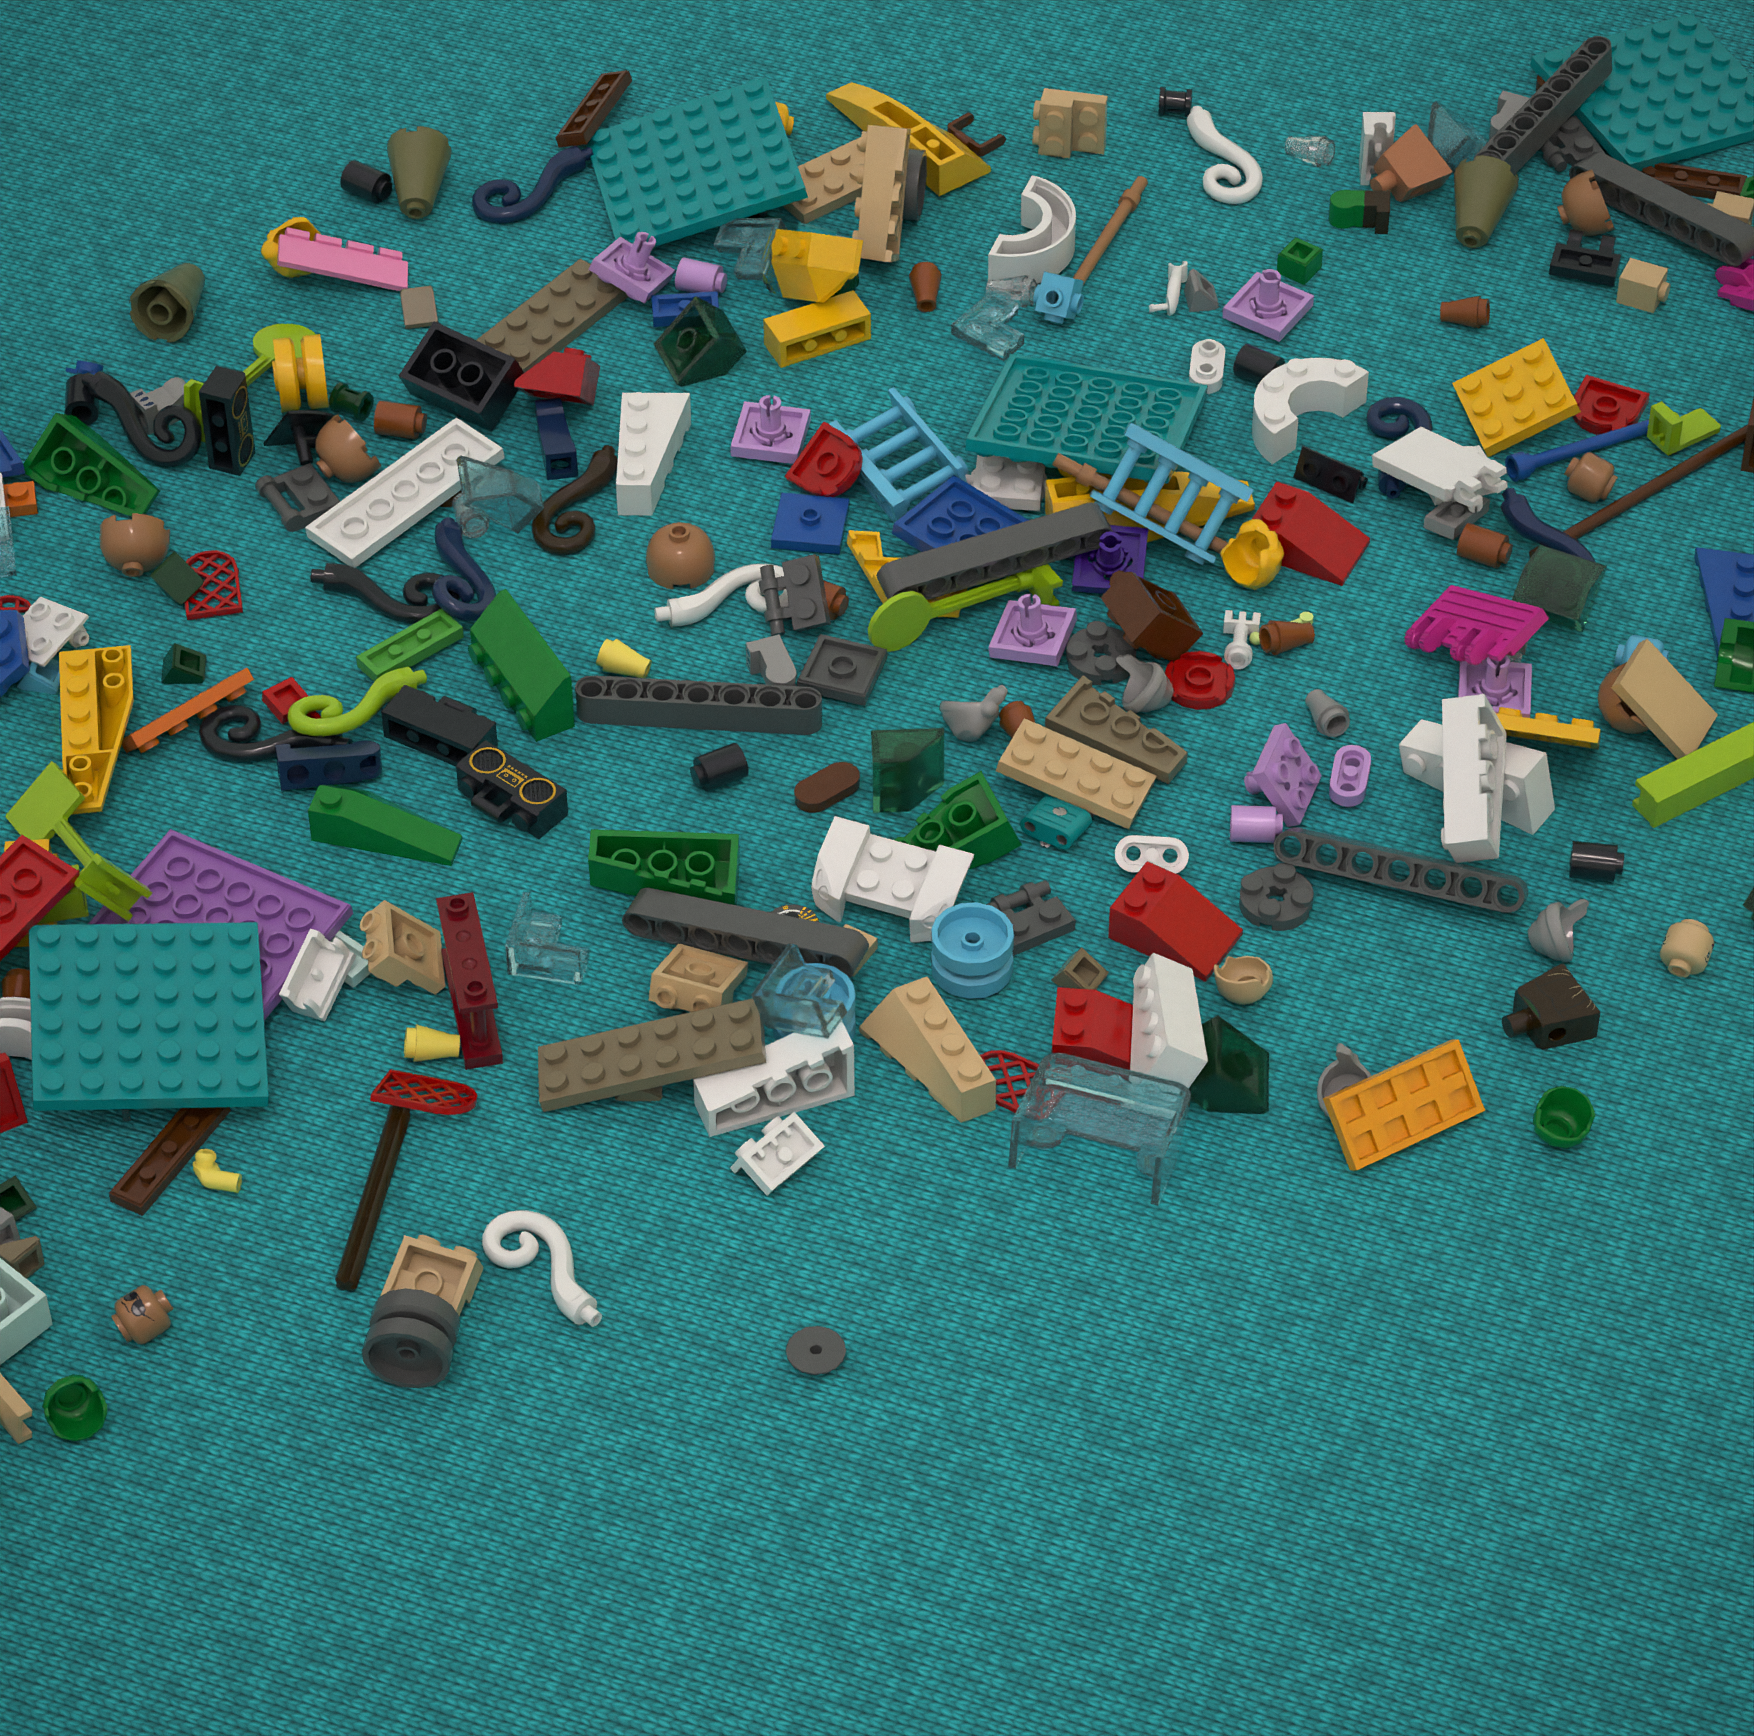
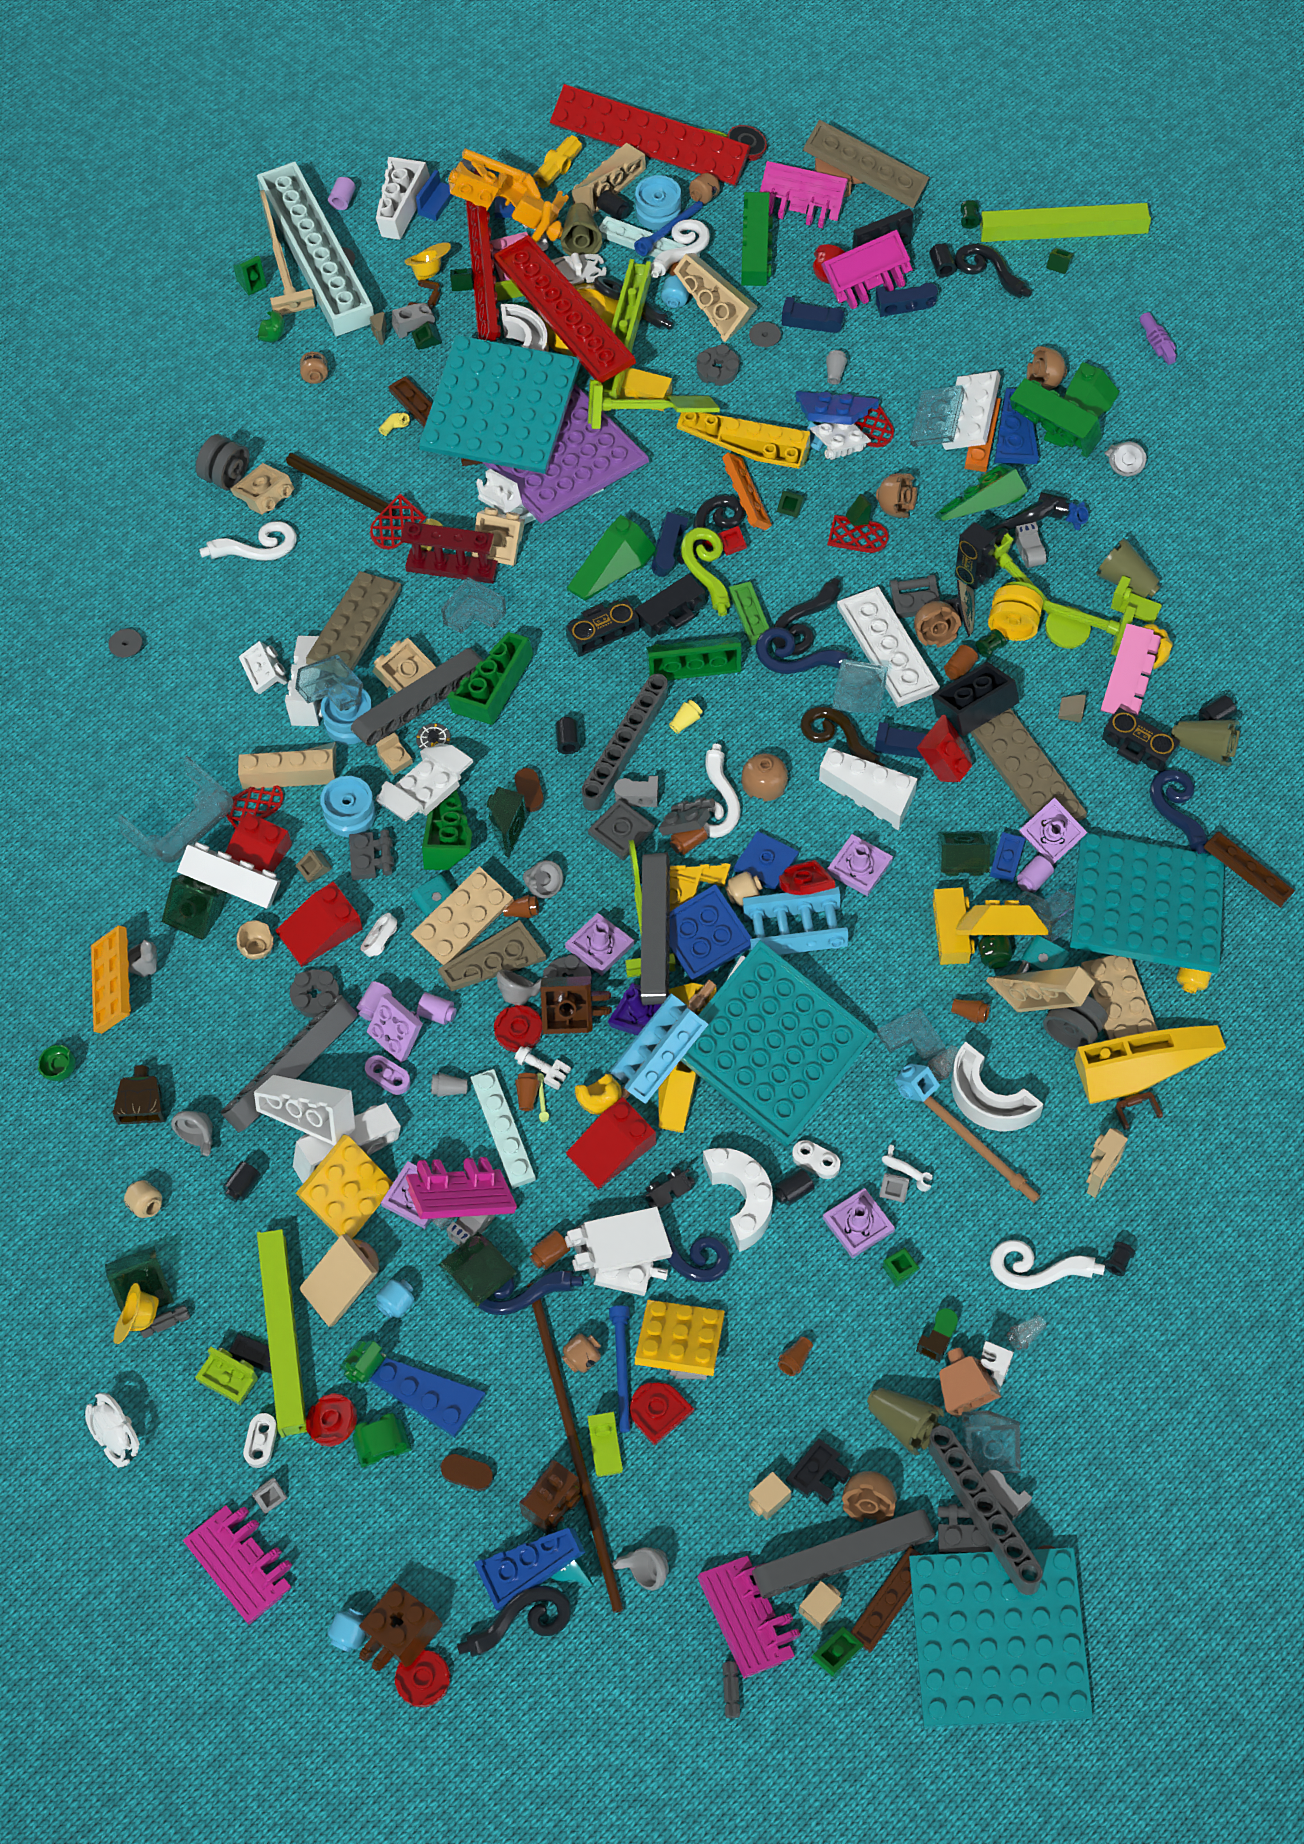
camera: 115 degrees right, 15 degrees up
(219, 290) = (1145, 608): none -> lime bracket
(272, 290) = (1111, 627): none -> lime piece
(446, 235) = (1140, 741): none -> black piece
(871, 515) = (743, 886): none -> tan head
(1226, 759) = (436, 1009): none -> lavender brick
(1348, 648) = (503, 1129): none -> light aqua plate

